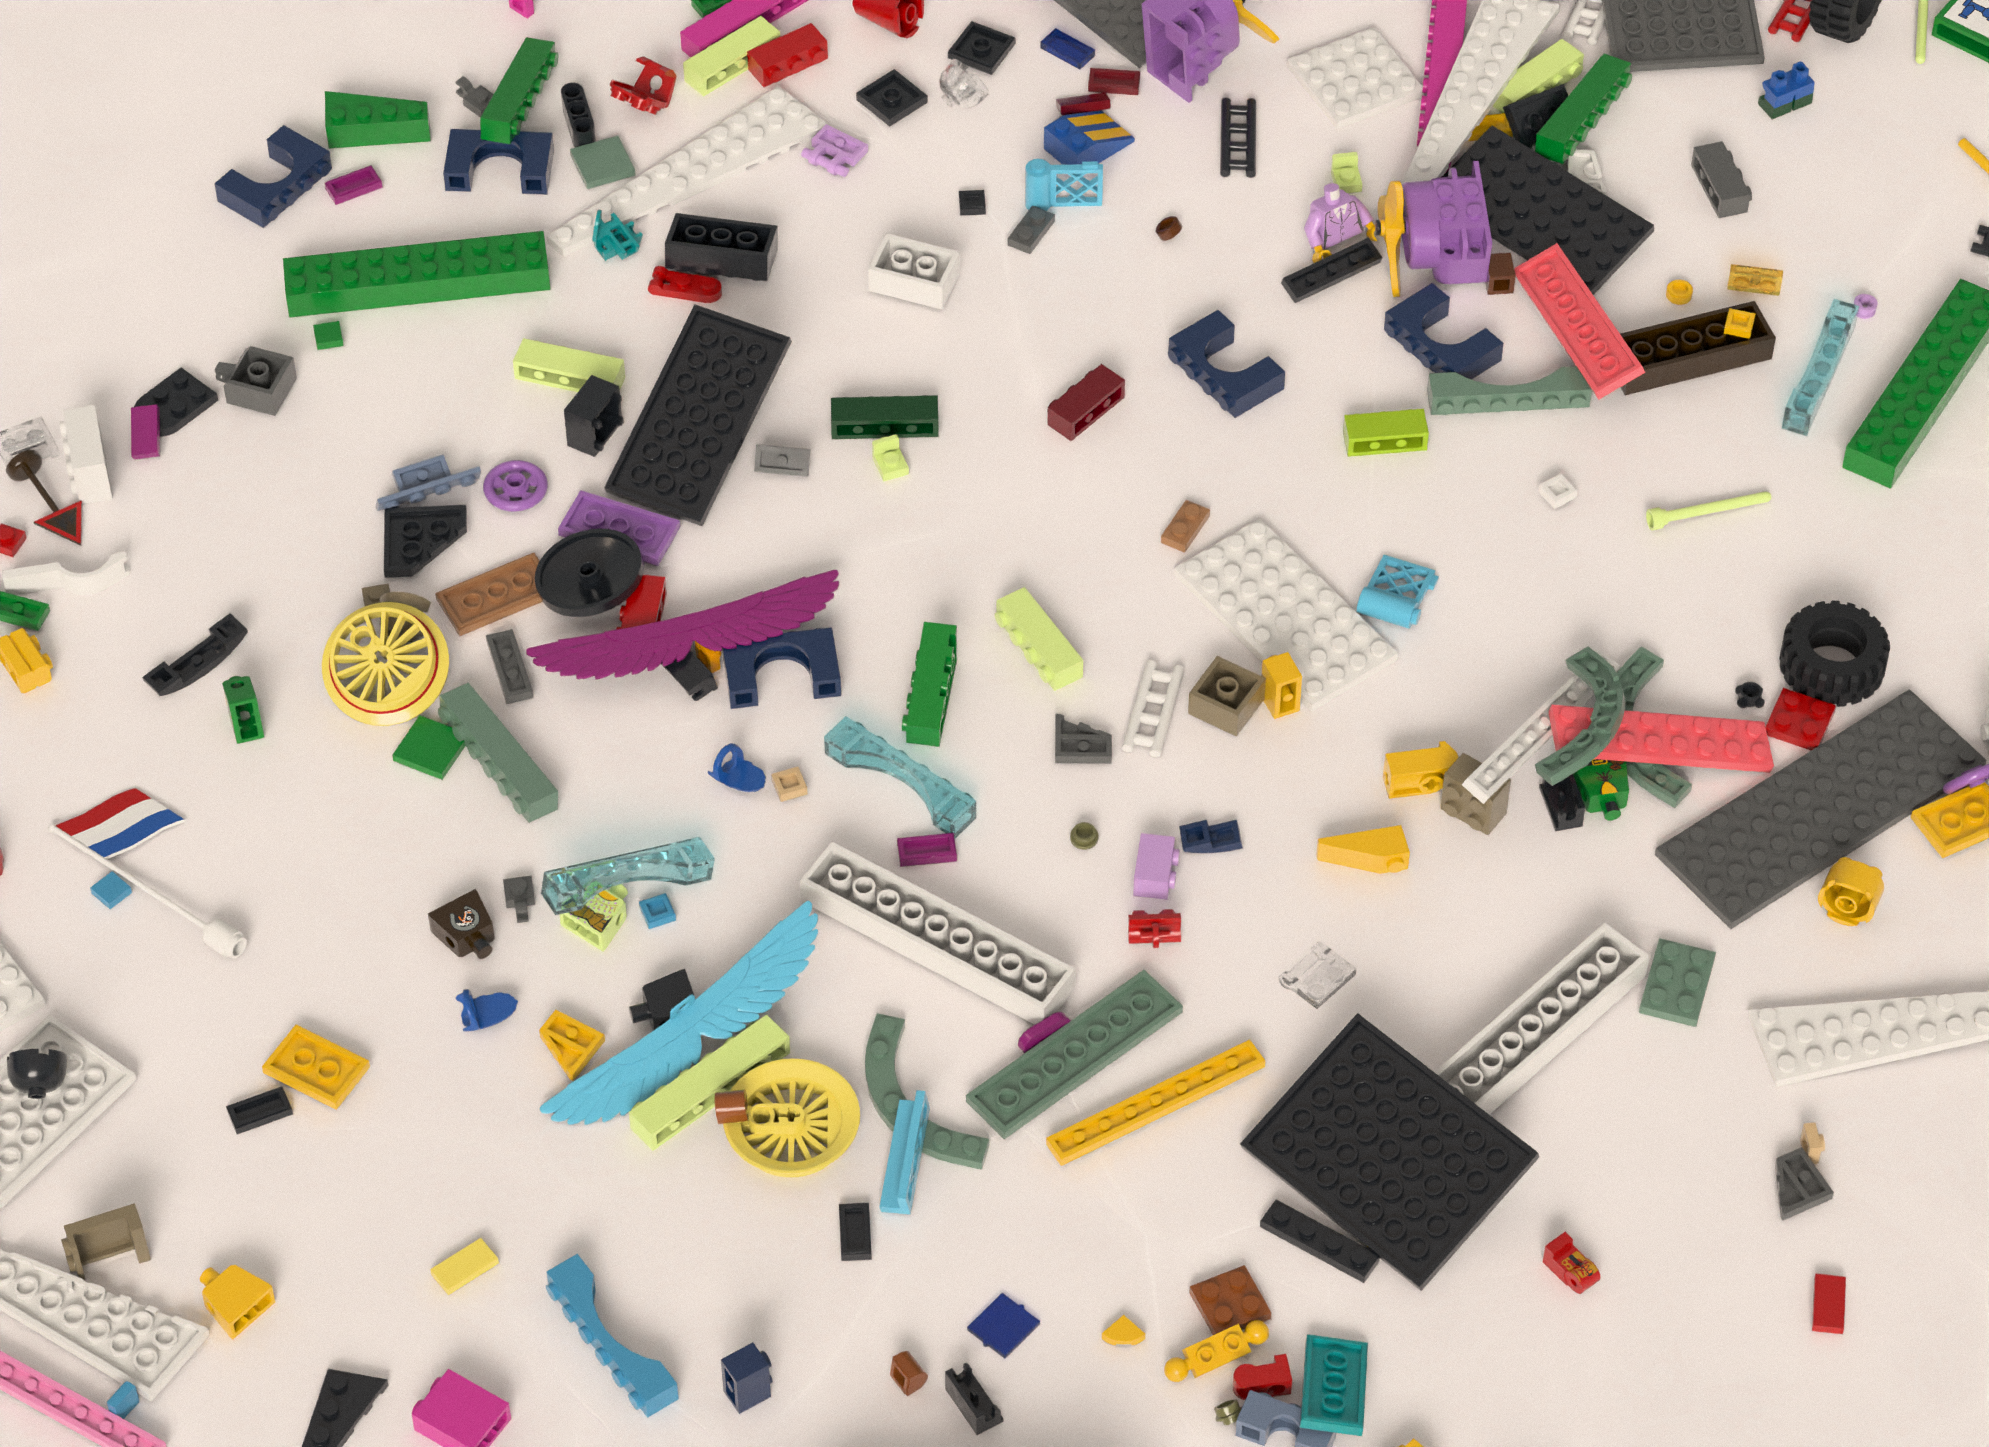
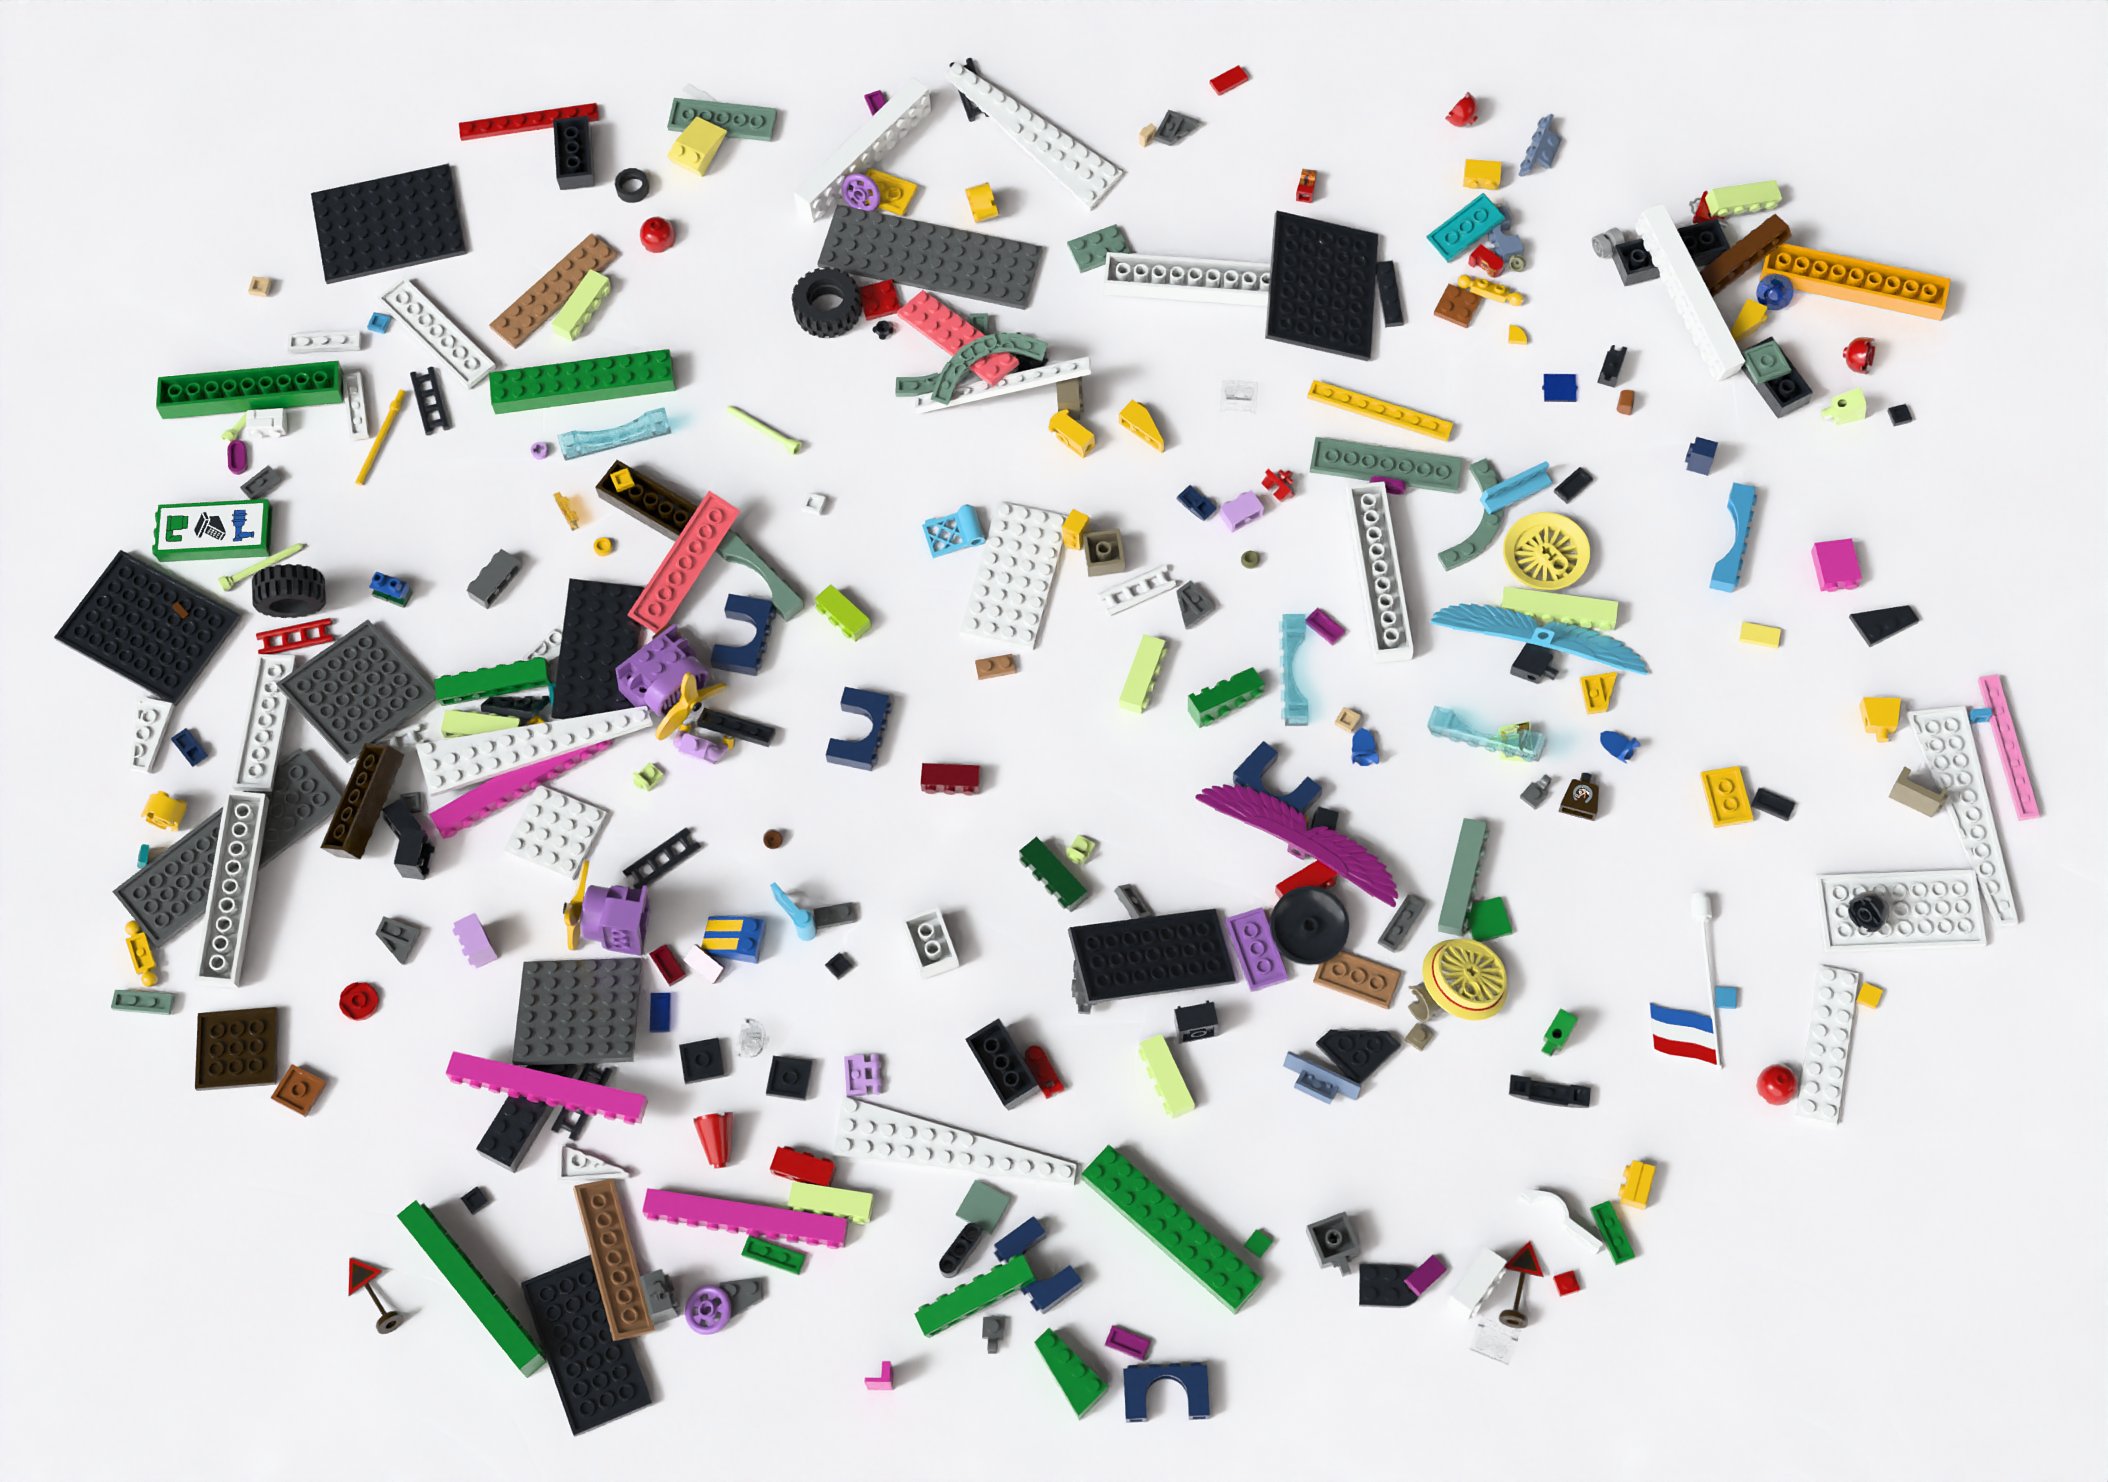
camera: 125 degrees left, 15 degrees up
(515, 485) = (1278, 1016): medium lavender plate -> none
(613, 241) = (1045, 1141): teal piece -> none
(640, 93) = (913, 1224): red piece -> none
(657, 911) = (1481, 721): dark azure tile -> none
(731, 1106) = (1570, 575): dark orange brick -> none

